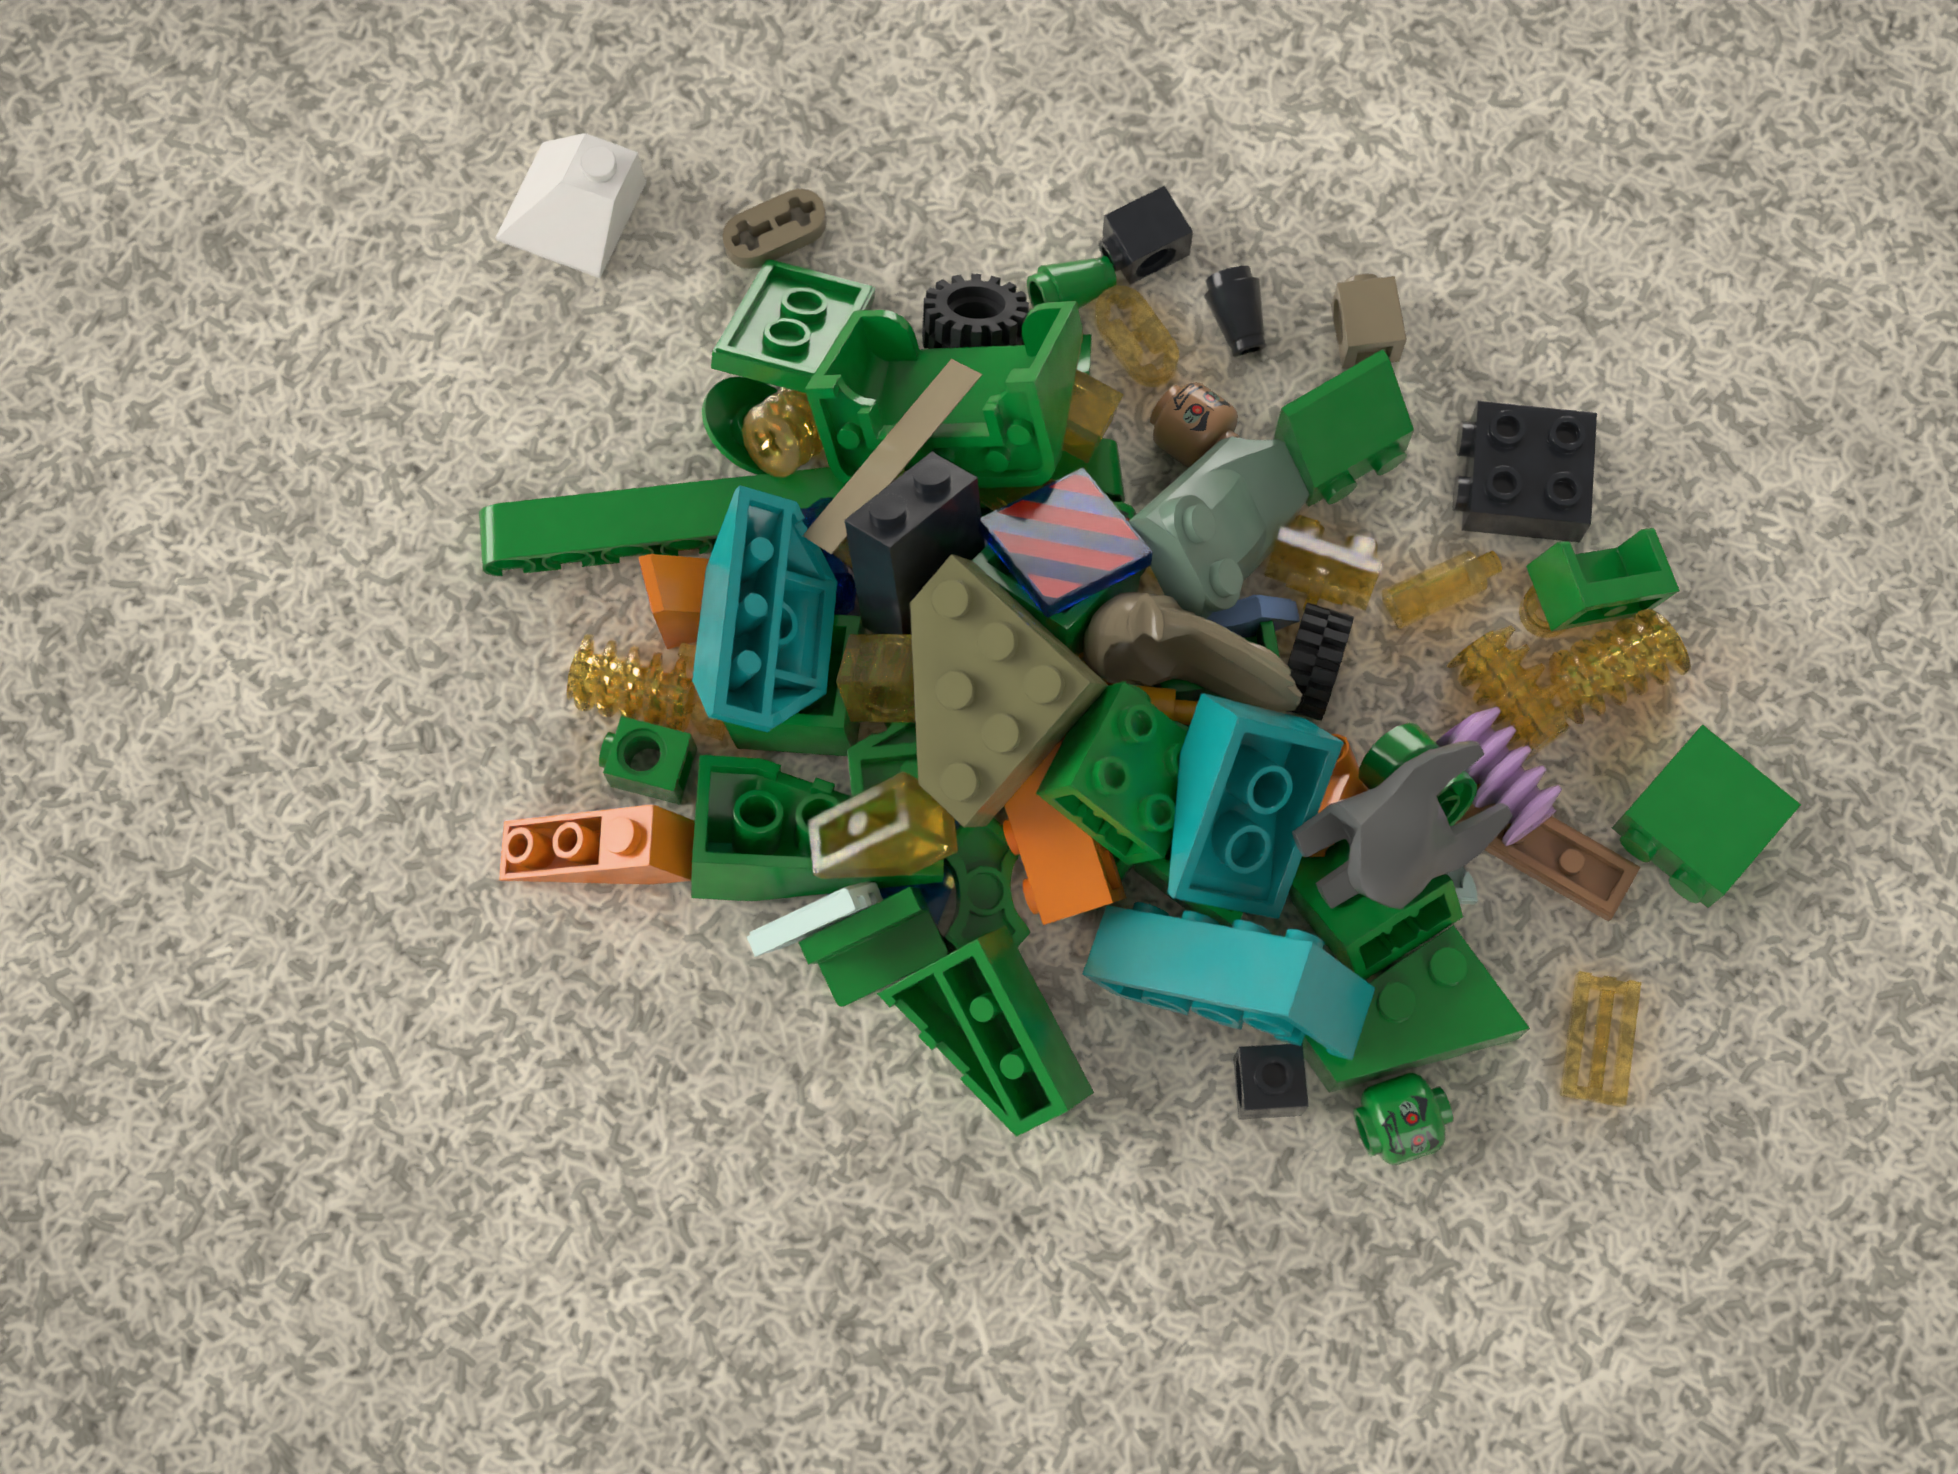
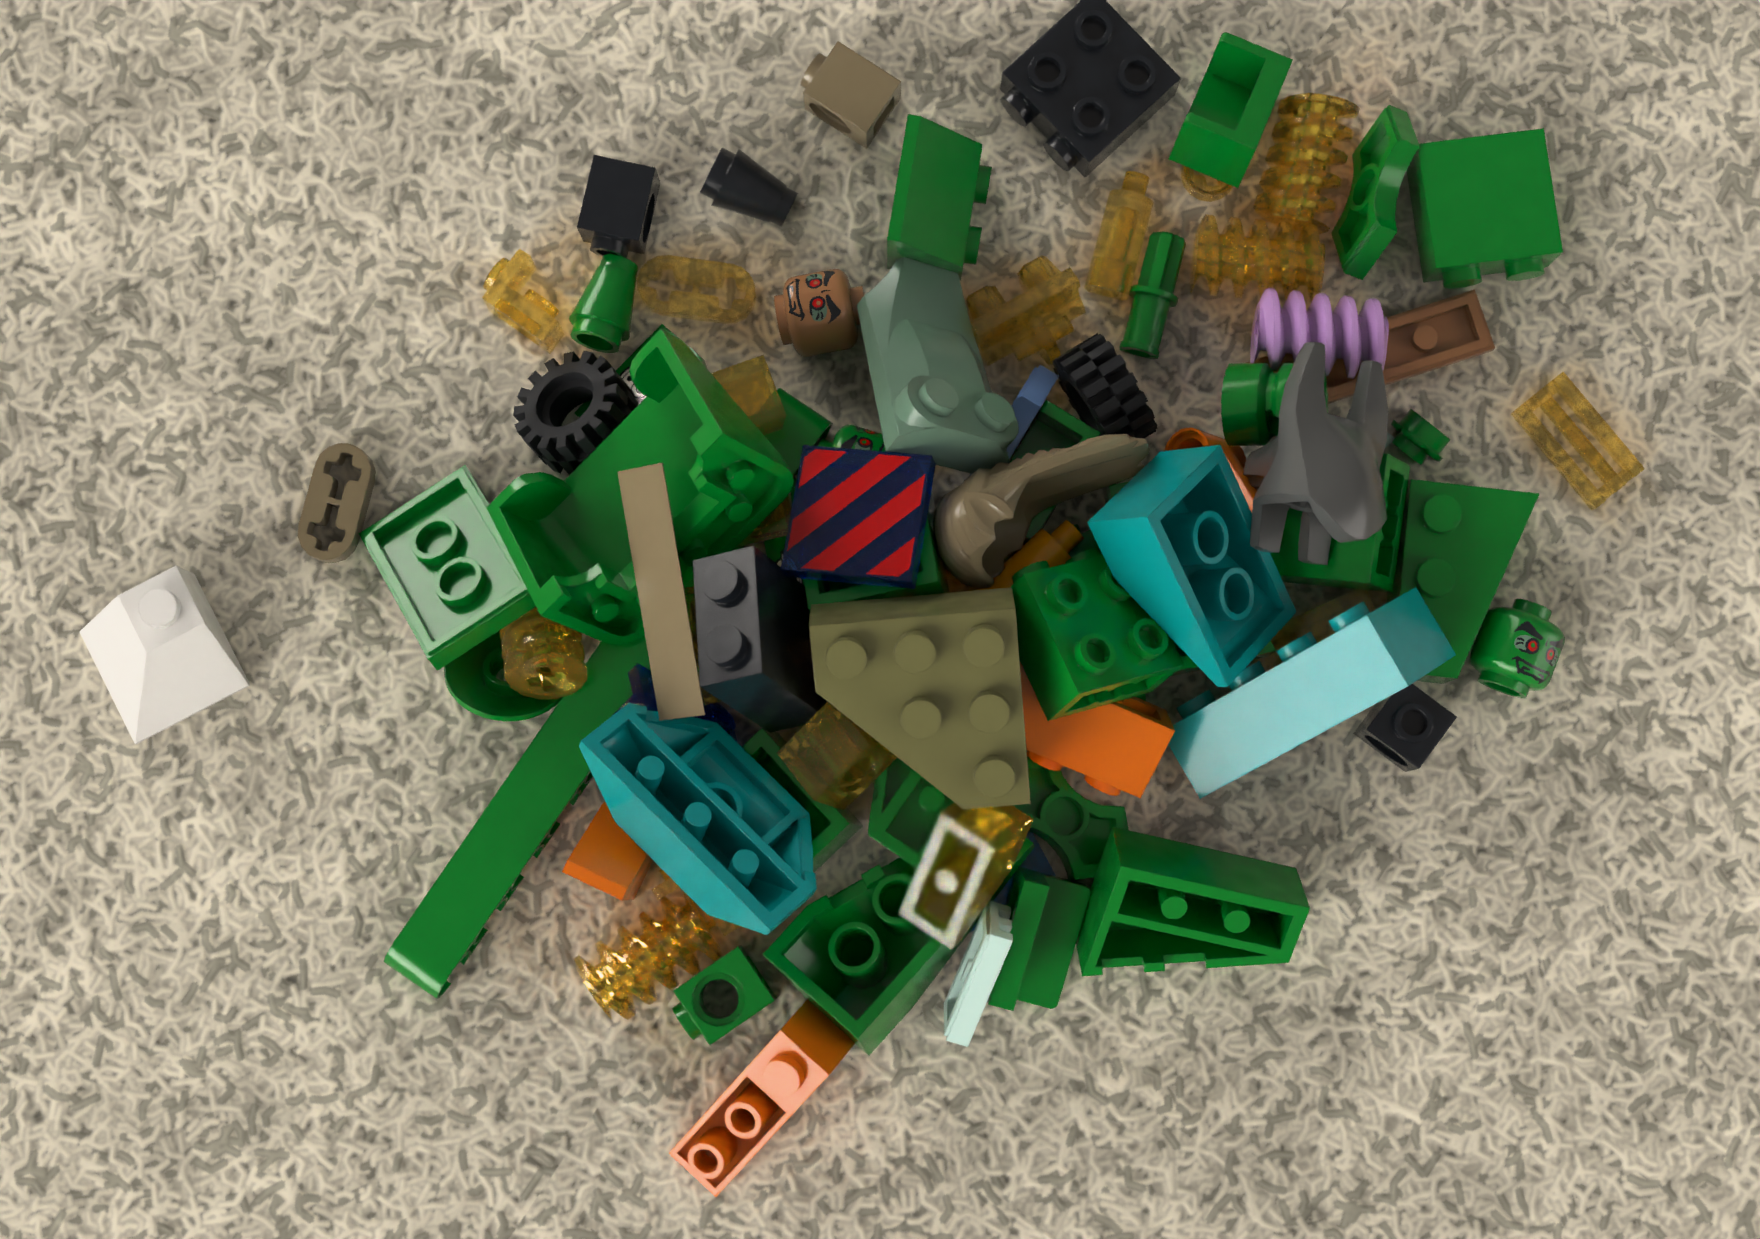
camera: 50 degrees left, 10 degrees up
(1017, 221) = (527, 314): none -> clear yellow bracket
(1420, 643) = (1153, 295): none -> green axle
(1493, 918) = (1419, 438): none -> green plate
(1631, 734) = (1379, 169): none -> green tile

